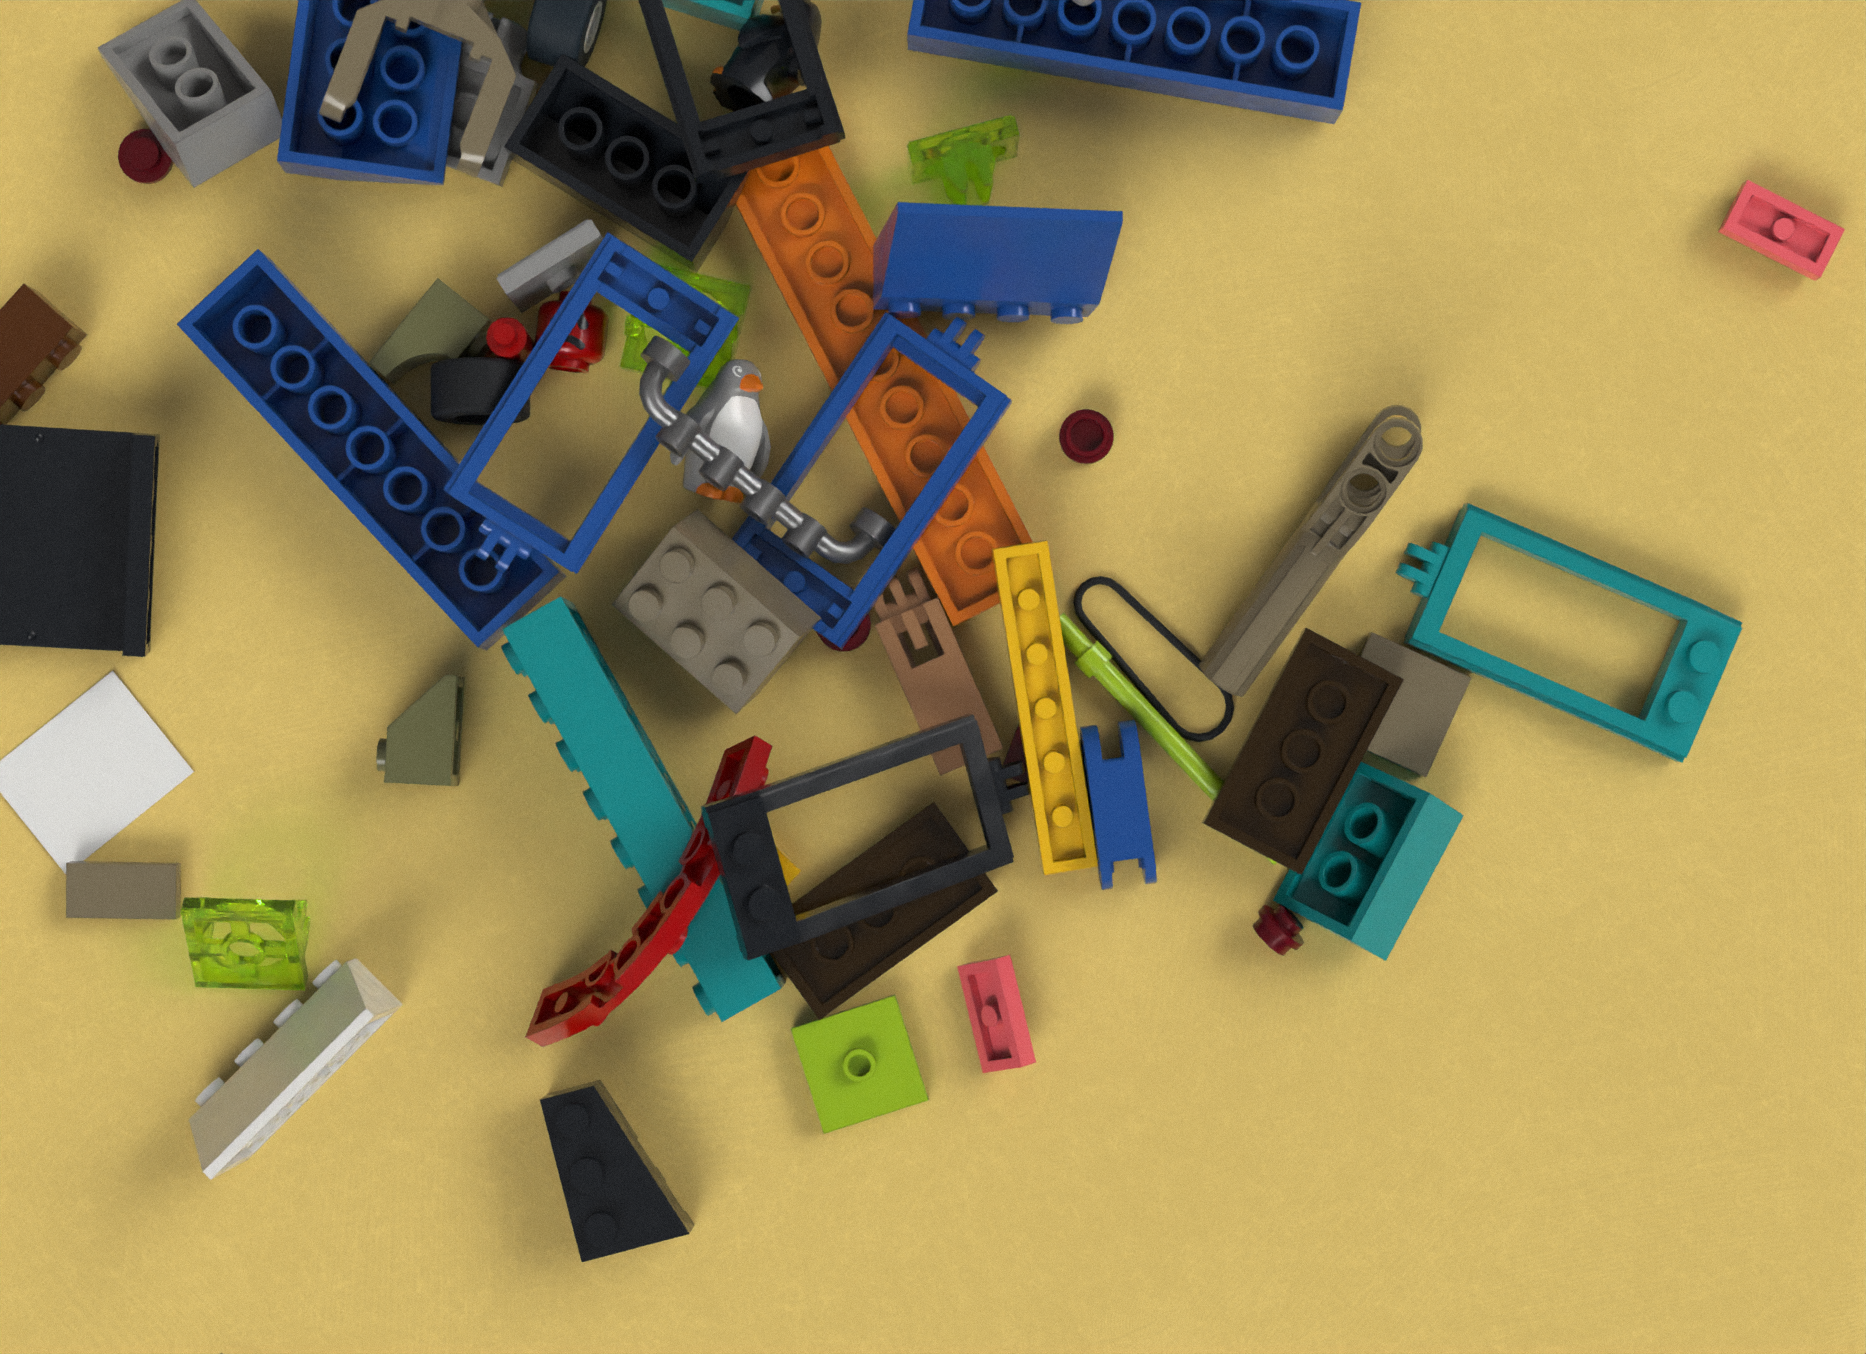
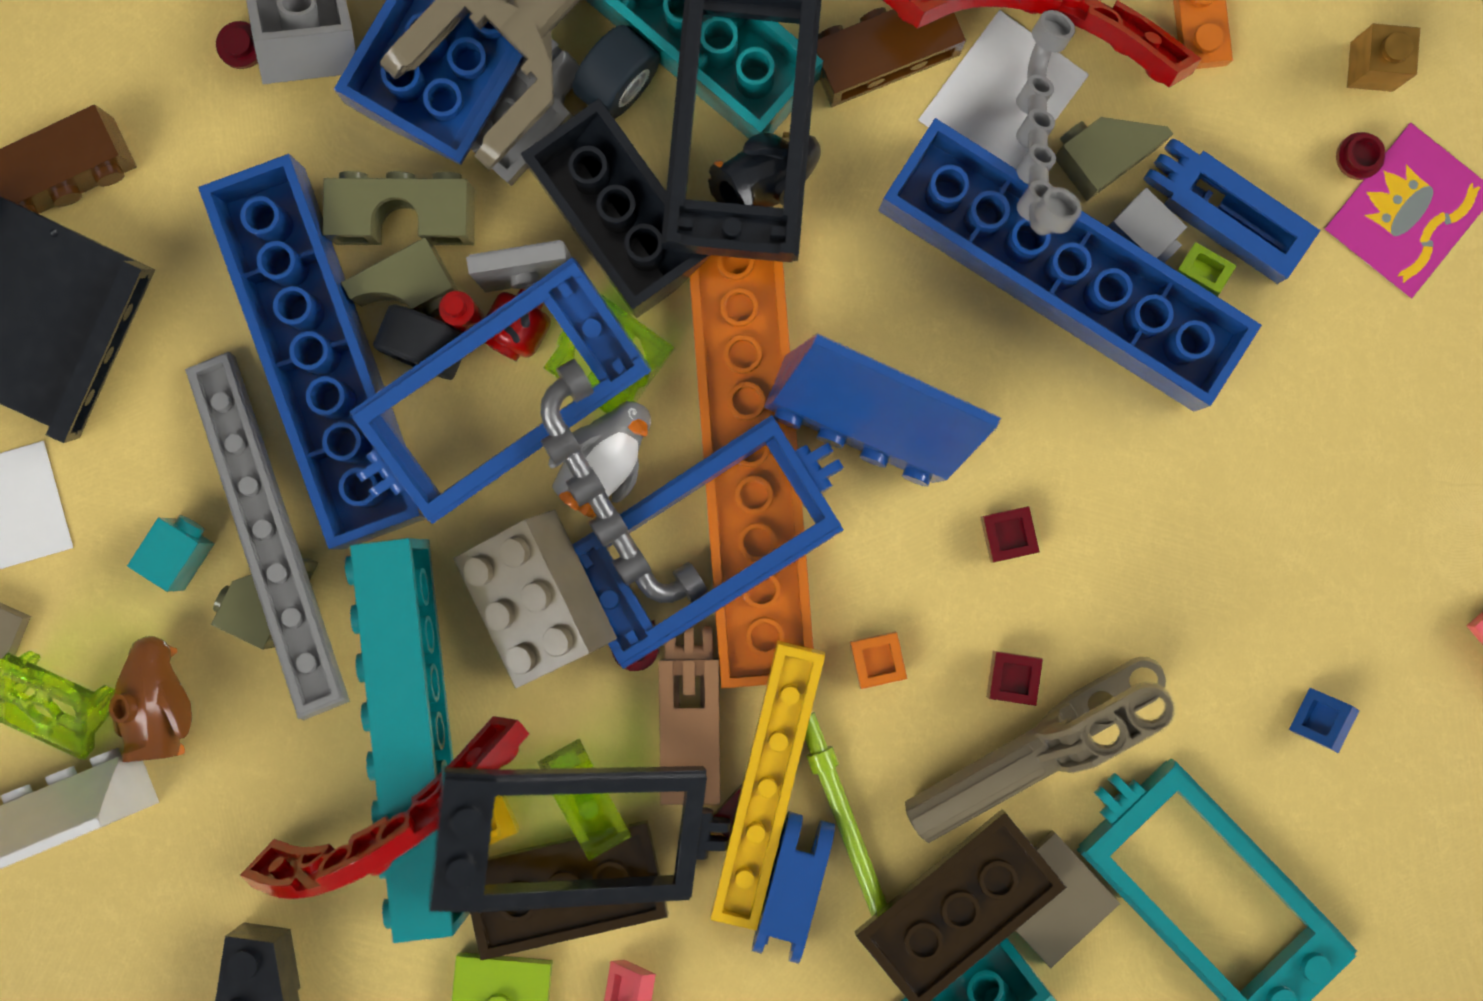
camera: 25 degrees right, 0 degrees up
(306, 728) = (171, 553): none -> teal brick
(350, 272) = (359, 205): none -> olive arch
(352, 896) = (150, 703): none -> dark orange animal
(402, 662) = (267, 537): none -> light grey tile
(865, 809) = (590, 816): none -> clear neon green slope
(964, 157) = (888, 316): clear neon green piece -> none
(1086, 436) = (891, 579): dark red plate -> none
(1107, 527) = (878, 660): none -> orange plate
(1129, 672) = (848, 786): black piece -> none
(1192, 336) = (1009, 534): none -> dark red plate
(1260, 486) = (1014, 678): none -> dark red plate
(1605, 393) = (1324, 720): none -> blue plate

